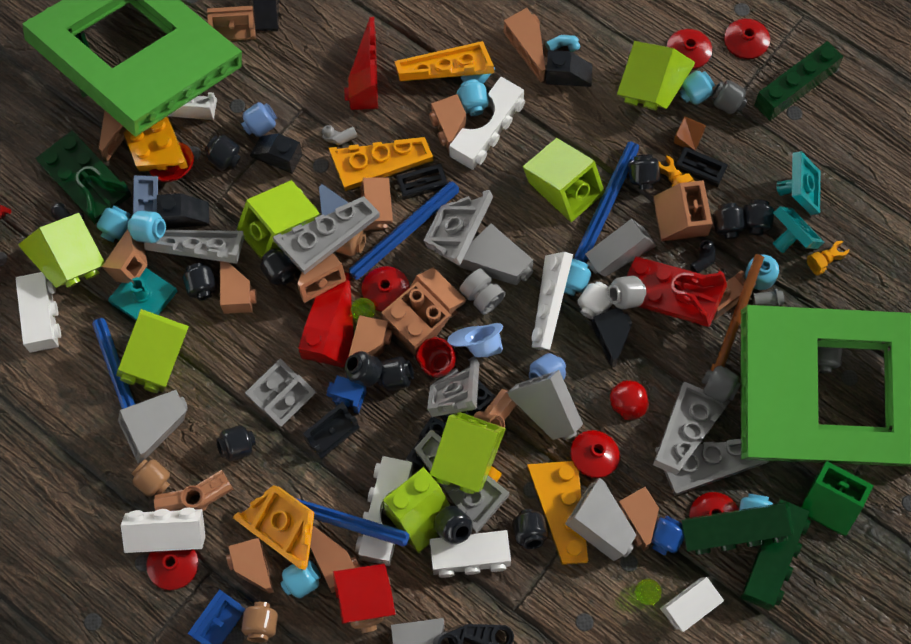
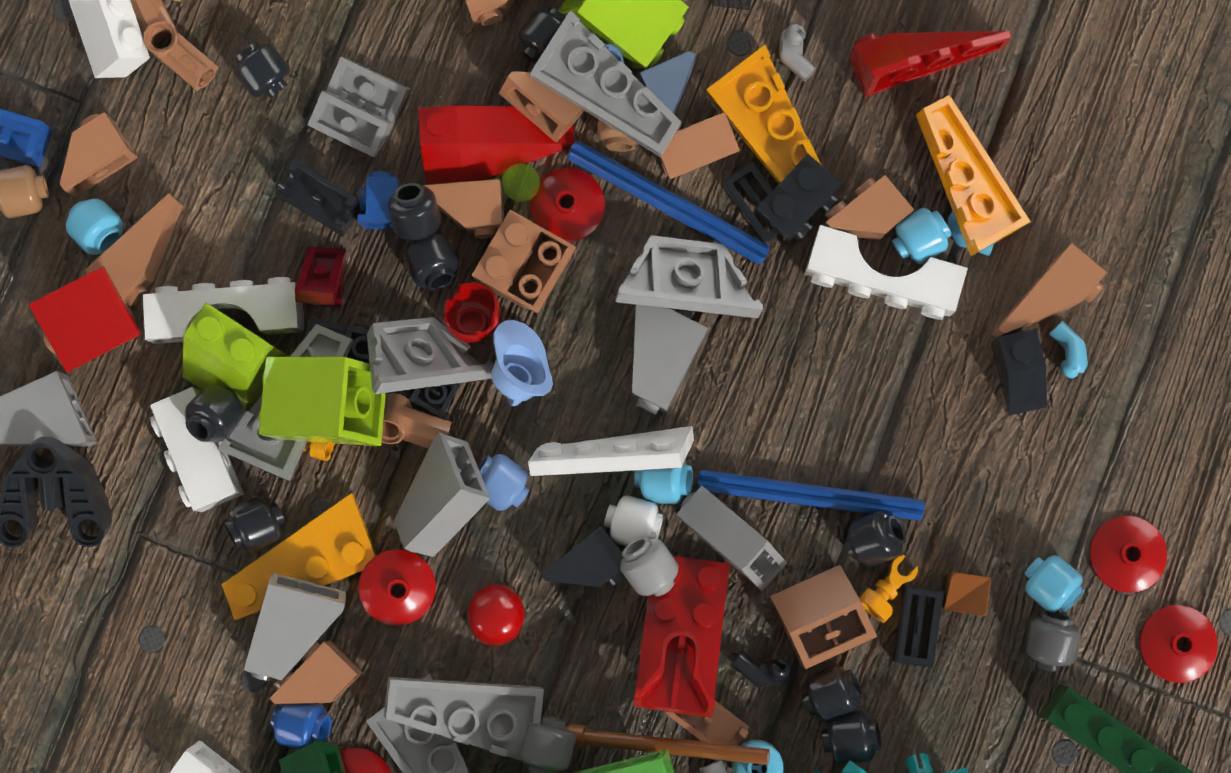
camera: 80 degrees right, 15 degrees up
(175, 576) = (63, 63): red dish -> none
(281, 524) = (152, 174): light orange wing -> none
(358, 524) = (185, 252): blue axle -> none
(383, 442) = (322, 277): none -> dark red slope
(429, 155) = (799, 198): none -> black bracket
(441, 290) = (578, 285): nougat hinge -> none
(479, 288) = (597, 348): light grey wheel -> none
(565, 178) = (825, 418): lime slope -> none
(648, 592) = (213, 718): clear neon green plate -> none
(653, 75) = (1045, 510): lime slope -> none

